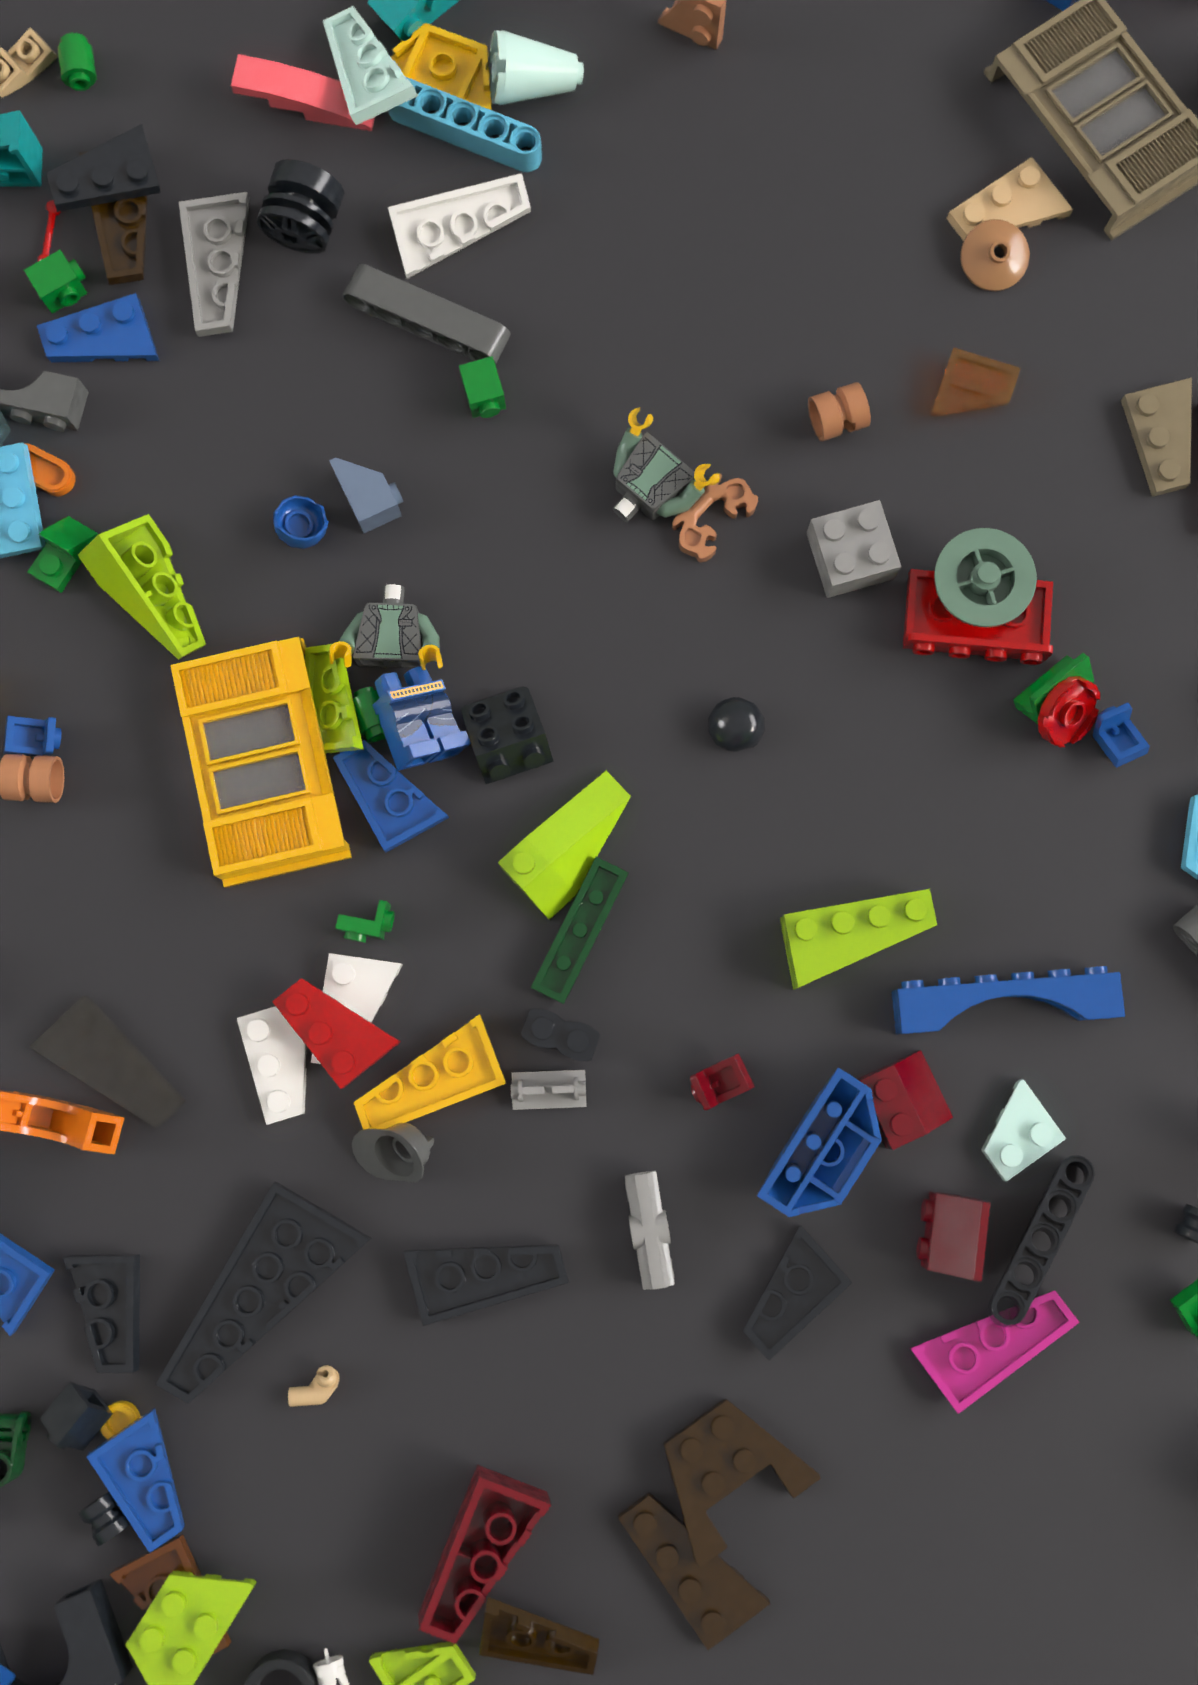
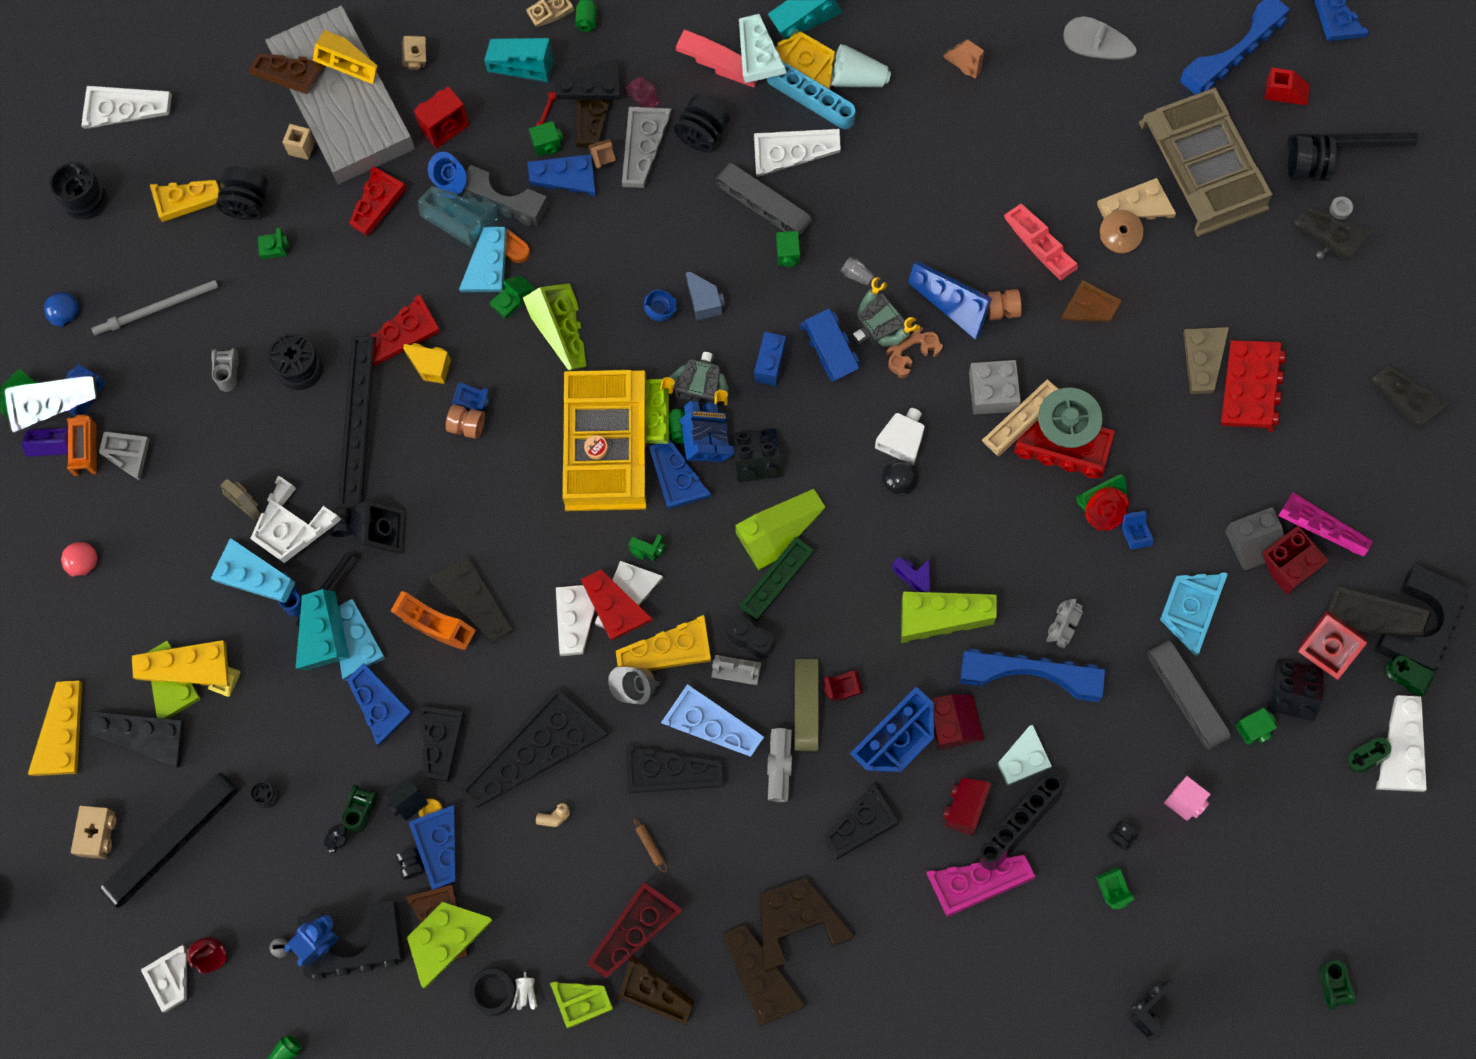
camera: 15 degrees right, 10 degrees down
(152, 287) = (602, 153): none -> medium nougat panel
(196, 174) = (642, 93): none -> clear pink bracket
(248, 781) = (596, 447): none -> tile
(475, 1400) = (649, 845): none -> medium nougat piece
(493, 574) = (770, 359): none -> blue brick
(524, 1182) = (707, 720): none -> light blue wing
(584, 533) = (830, 344): none -> blue wedge
(599, 403) = (856, 271): none -> clear cone
(669, 1121) = (806, 704): none -> olive slope
(728, 658) = (902, 436): none -> white torso
(760, 417) = (953, 298): none -> wing
(802, 886) = (917, 579): none -> dark purple slope
(874, 298) = (1040, 242): none -> coral slope
(903, 594) = (1018, 420): none -> tan tile
(1040, 889) = (1068, 613): none -> light grey hinge

